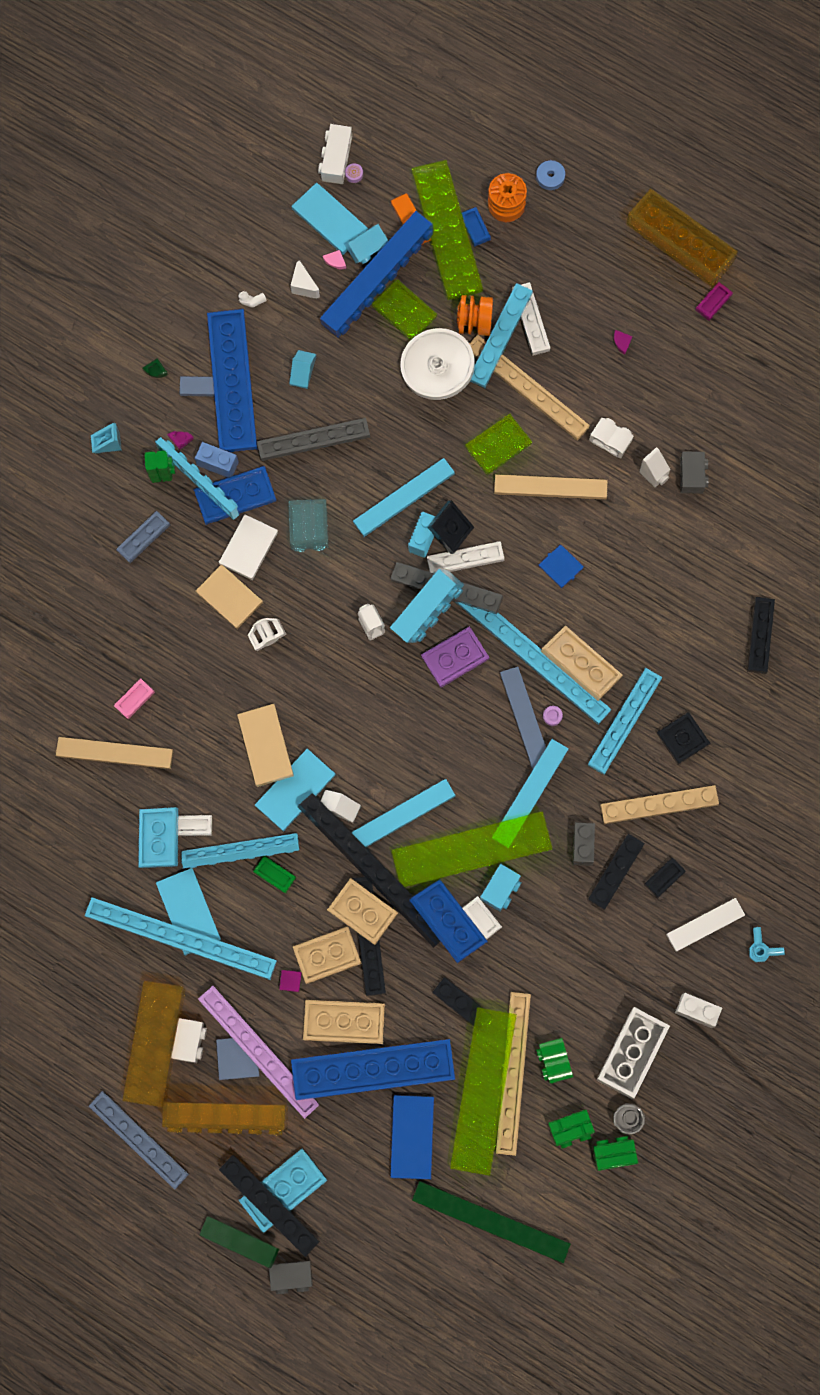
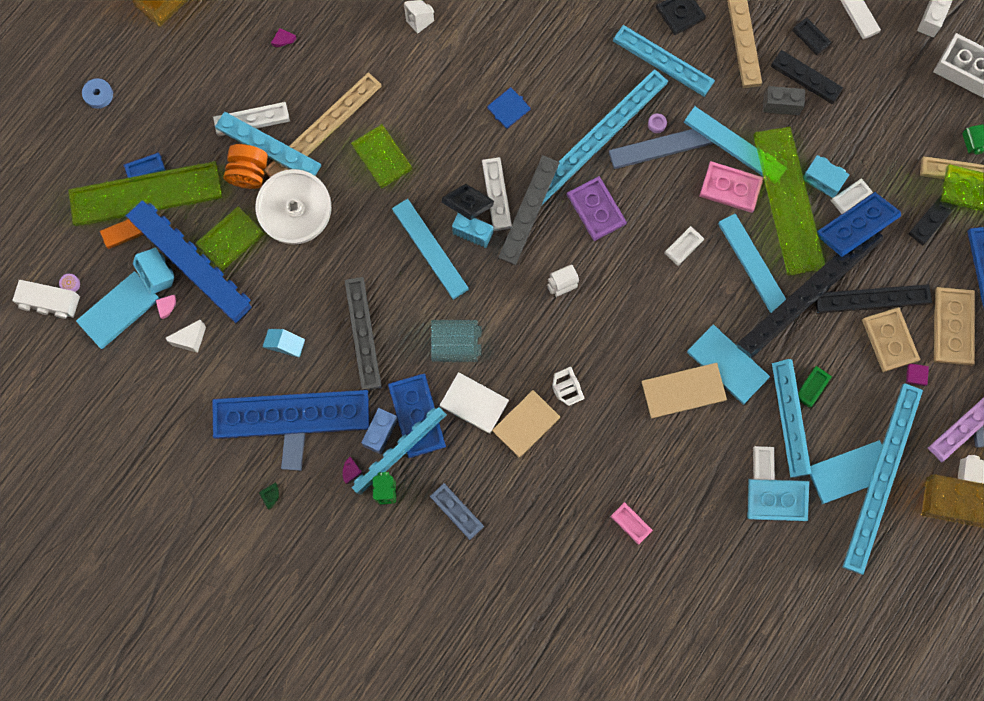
camera: 90 degrees left, 0 degrees up
(106, 439) = (347, 548): medium azure slope -> none
(114, 753) = (688, 545): tan tile -> none
(250, 301) = (203, 393): white arm -> none
(340, 805) = (744, 322): white slope -> none
(362, 911) = (852, 301): tan tile -> none
(418, 745) = (684, 246): none -> white tile
(427, 606) = (553, 222): medium azure brick -> none
(485, 792) = (731, 187): none -> bright pink tile
(507, 197) = (125, 138): orange wheel -> none
(550, 487) = (428, 112): tan tile -> none
(581, 663) = (608, 93): tan tile -> none
(611, 438) = (383, 52): white brick -> none

